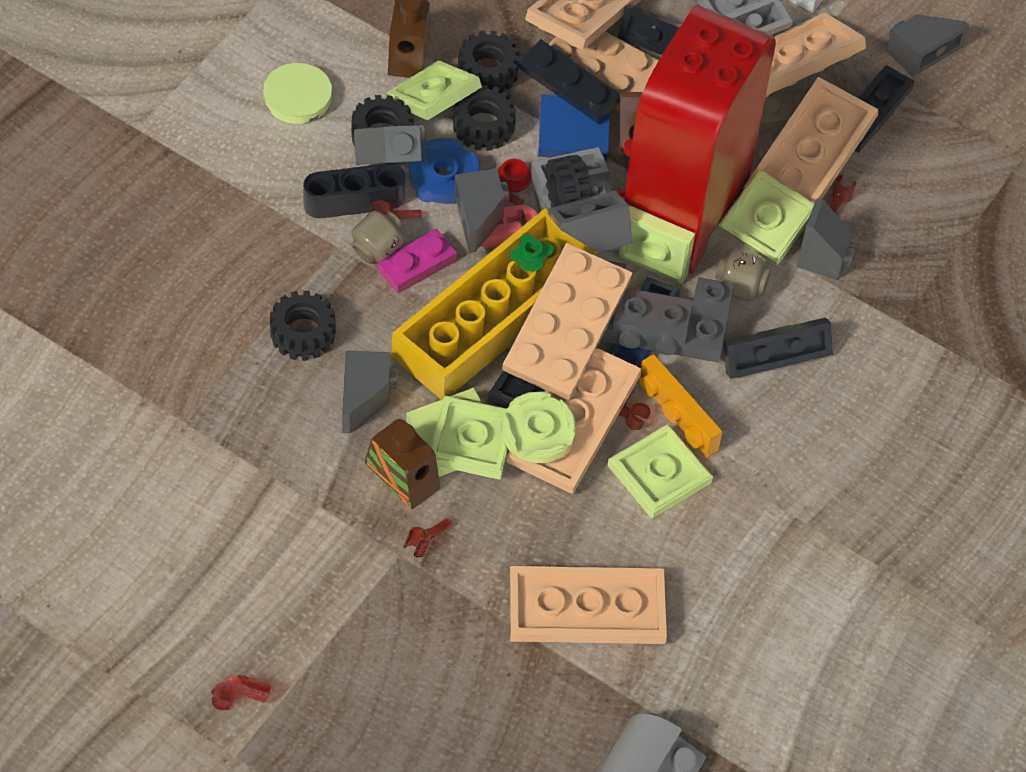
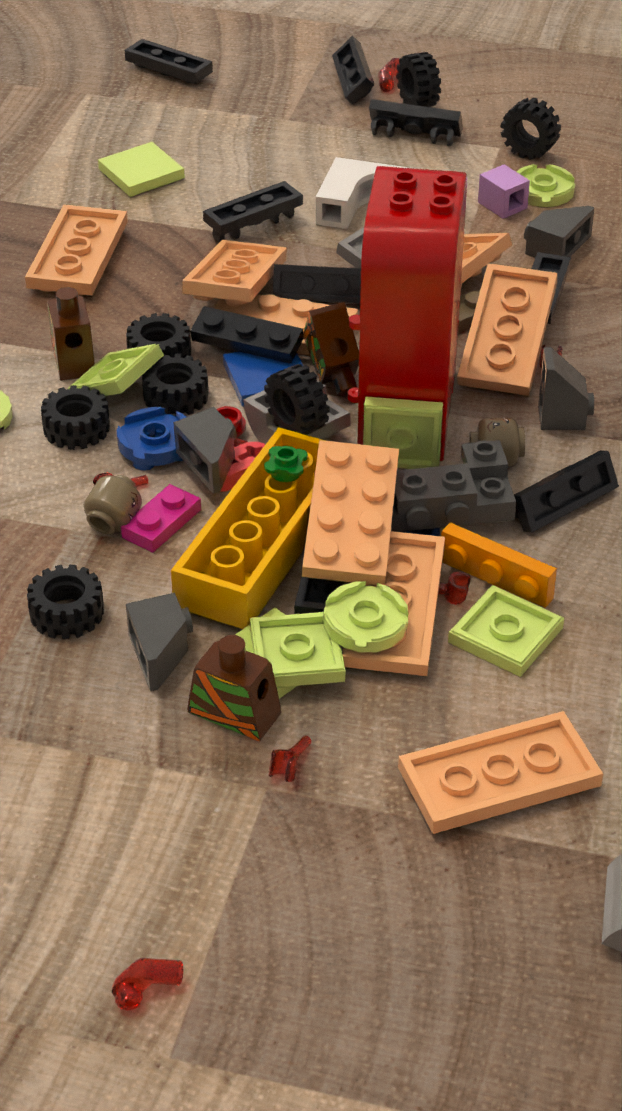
camera: 15 degrees left, 15 degrees down
(353, 190) = (67, 472): black beam -> none
(390, 145) = (93, 418): dark grey slope -> none
(596, 221) = (342, 416): dark grey slope -> none
(767, 217) = (494, 389): yellowish green tile -> none

